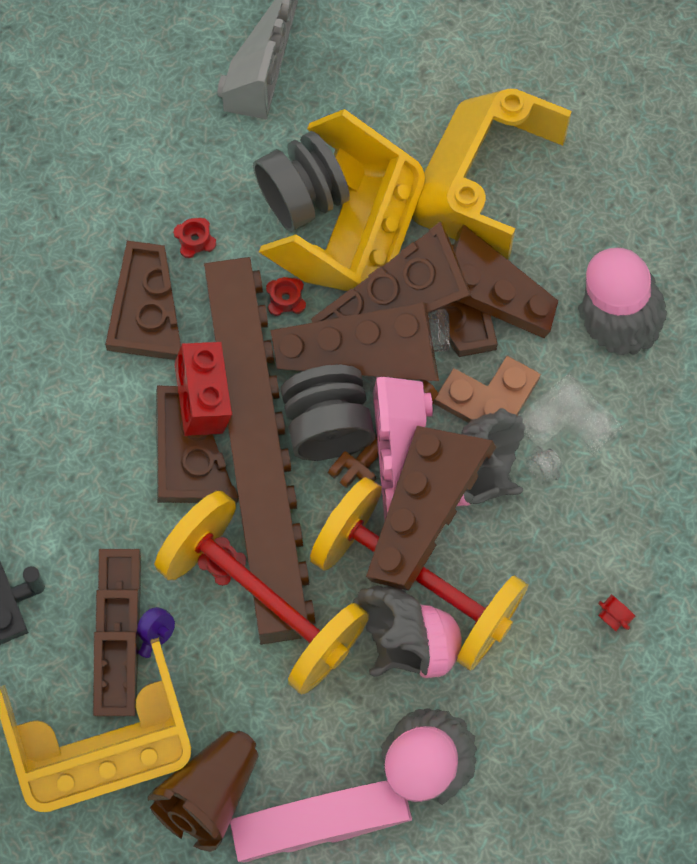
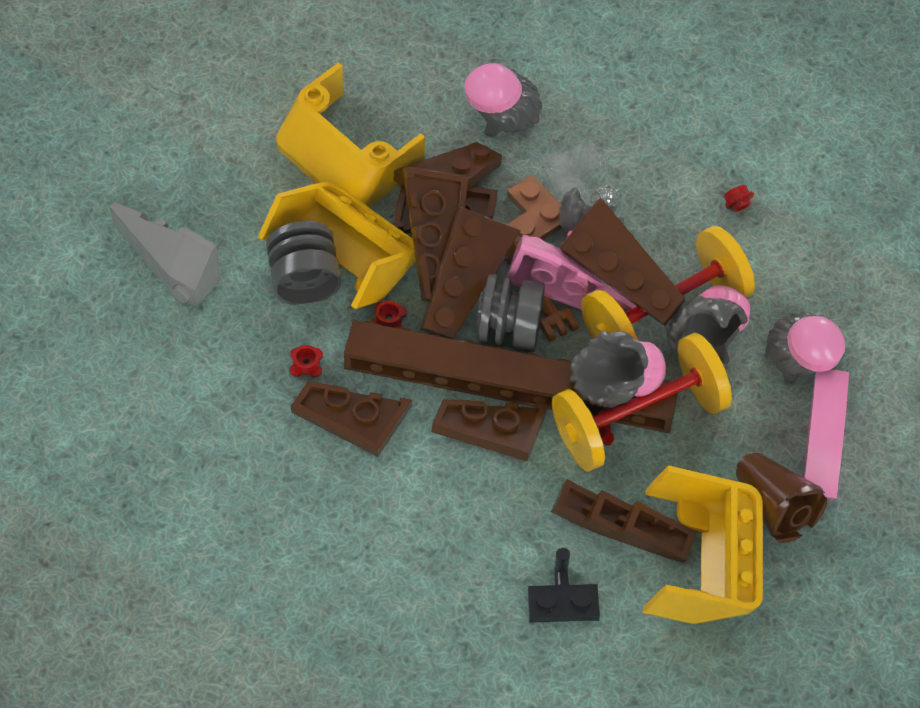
camera: 70 degrees left, 10 degrees down
(154, 624) = (631, 491): dark purple piece -> none
(202, 388) = (455, 387): red brick -> none
(276, 547) = (617, 369): none -> dark grey hair

